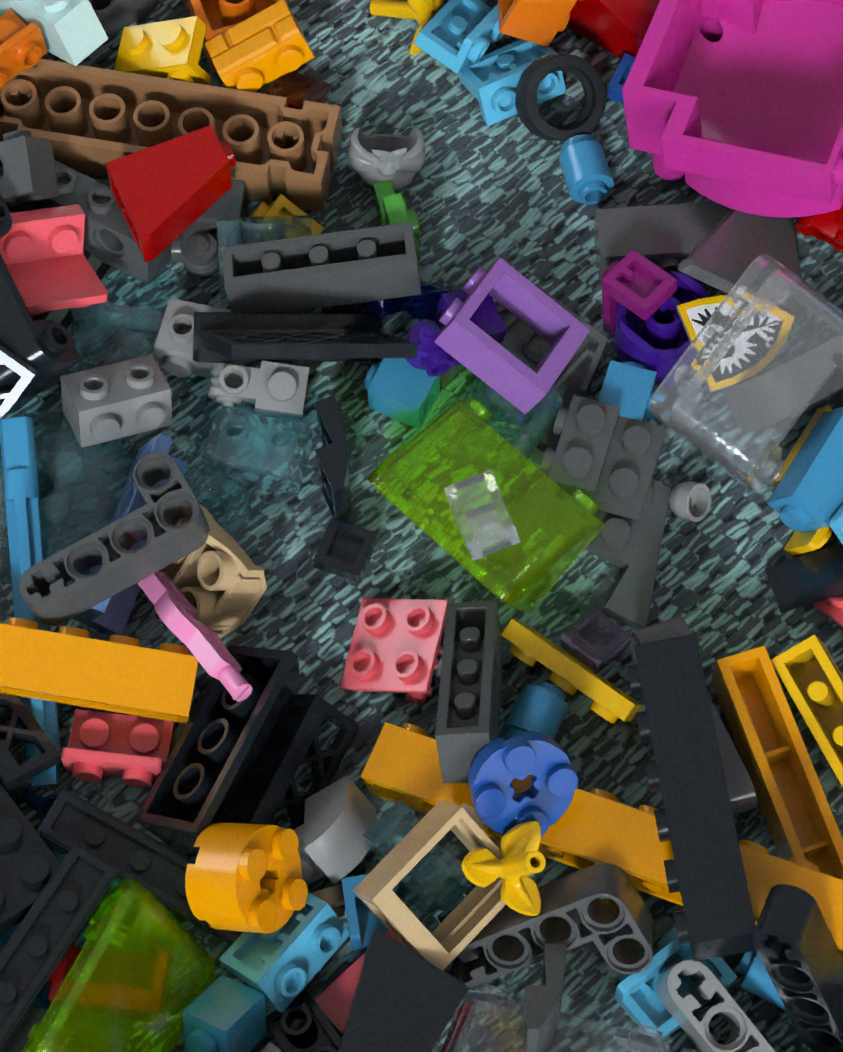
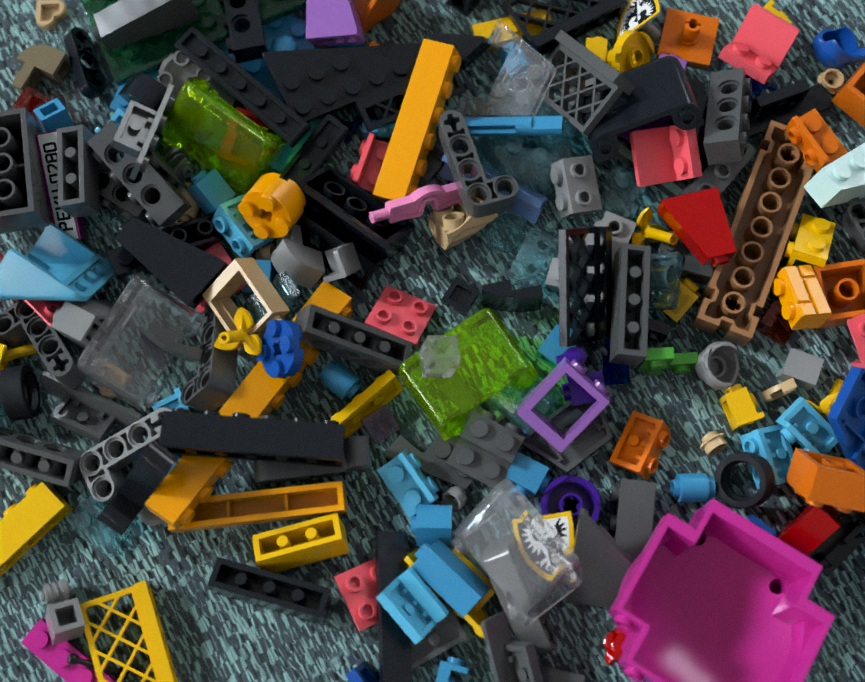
camera: 105 degrees right, 10 degrees up
(176, 278) = (653, 233): none -> yellow plant
(325, 752) = (342, 261): none -> light grey panel
(369, 47) = (802, 367): none -> light grey panel
(399, 75) = (777, 392): none -> tan tile
(448, 122) = (740, 407): none -> yellow brick
(508, 153) = (713, 443): none -> tan plate
(537, 250) = (641, 445): none -> orange bracket
(636, 285) = (587, 488): magenta bracket -> none
(686, 573) = (408, 482): none -> medium azure bracket
(744, 519) = (432, 523): none -> dark azure brick

